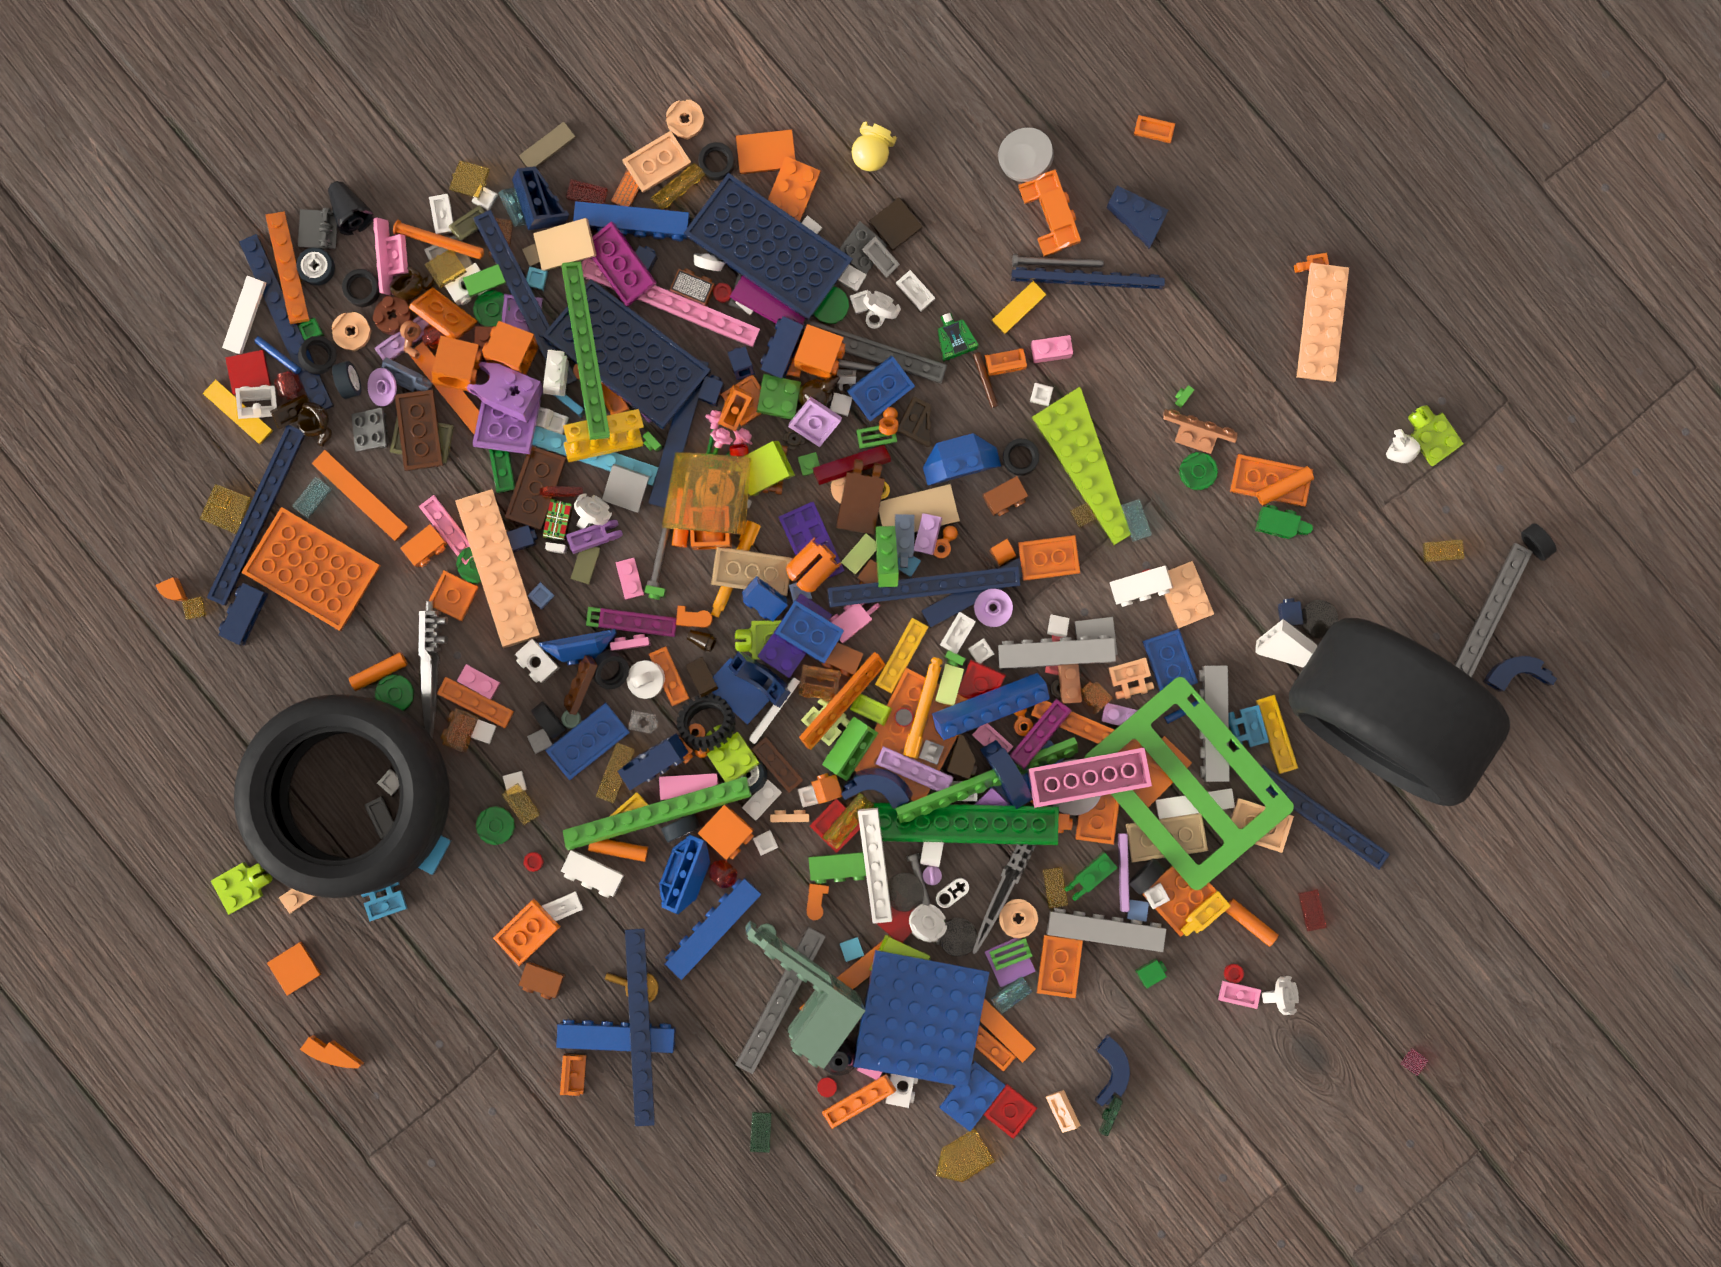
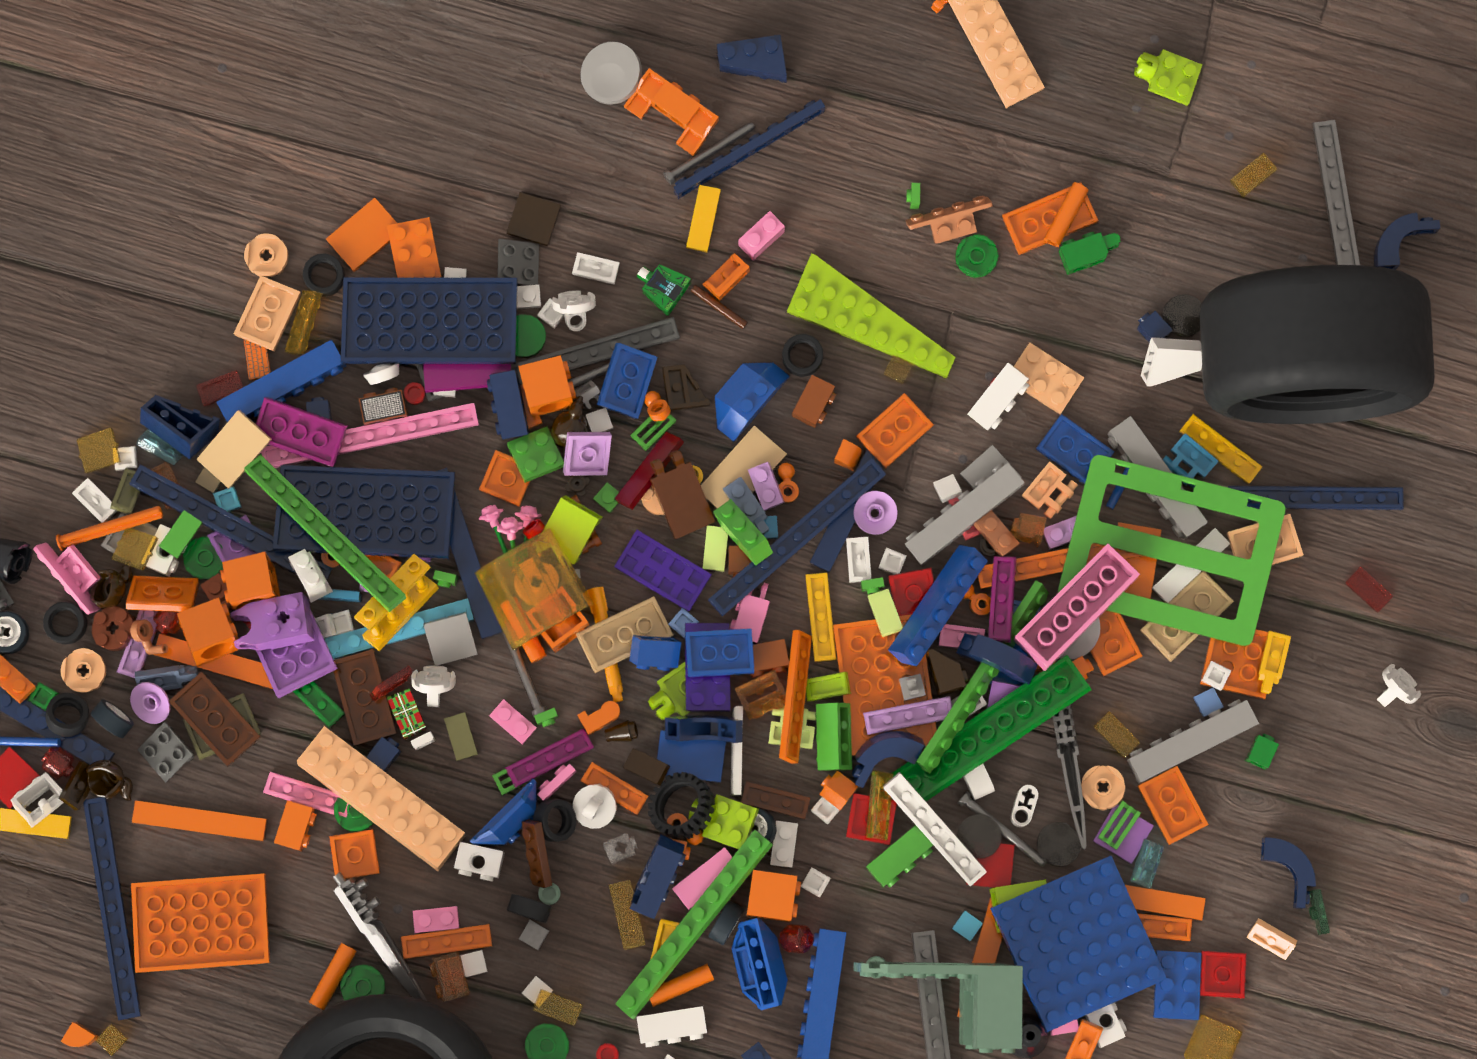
camera: 35 degrees left, 5 degrees down
(225, 509) = (78, 922): clear yellow plate -> none
(242, 614) = (163, 1011): dark blue brick -> none
(312, 497) = (154, 854): clear light blue plate -> none
(541, 595) = (439, 796): medium blue tile -> none
(547, 146) = (152, 369): dark tan tile -> none
(587, 741) = (579, 903): blue tile -> none
(592, 536) = (450, 706): medium lavender hinge -> none
(711, 390) = (467, 491): dark blue brick -> none
(734, 407) = (502, 491): orange slope -> none
(741, 363) = (478, 446): dark blue brick -> none
(781, 816) = (814, 846): light nougat plate -> none
(814, 904) = (904, 910): orange leg -> none
(818, 572) = (668, 589): orange cylinder -> none
(871, 149) = (463, 164): light yellow tile -> none
(880, 257) = (541, 258): light grey tile -> none
(903, 717) = (863, 672): flat silver tile -> none
(915, 738) = (887, 684): light orange piece -> none
(927, 923) = (1021, 850): white tile -> none
(932, 875) = (994, 803): lavender tile -> none
(1041, 394) = (781, 284): white tile -> none
(1092, 875) = (1143, 697): green hinge -> none
(1123, 872) = (1170, 675): lavender tile -> none
(1136, 520) = (951, 340): clear light blue plate -> none
(1147, 876) = (1194, 663): black tyre -> none
(1233, 973) = (1338, 699): red tile -> none
(1239, 994) = (1357, 714): bright pink plate -> none
(1251, 922) = (1321, 639): orange piece -> none
(1404, 448) = (1150, 106): white piece -> none
(1538, 541) = (1334, 107): black tyre -> none

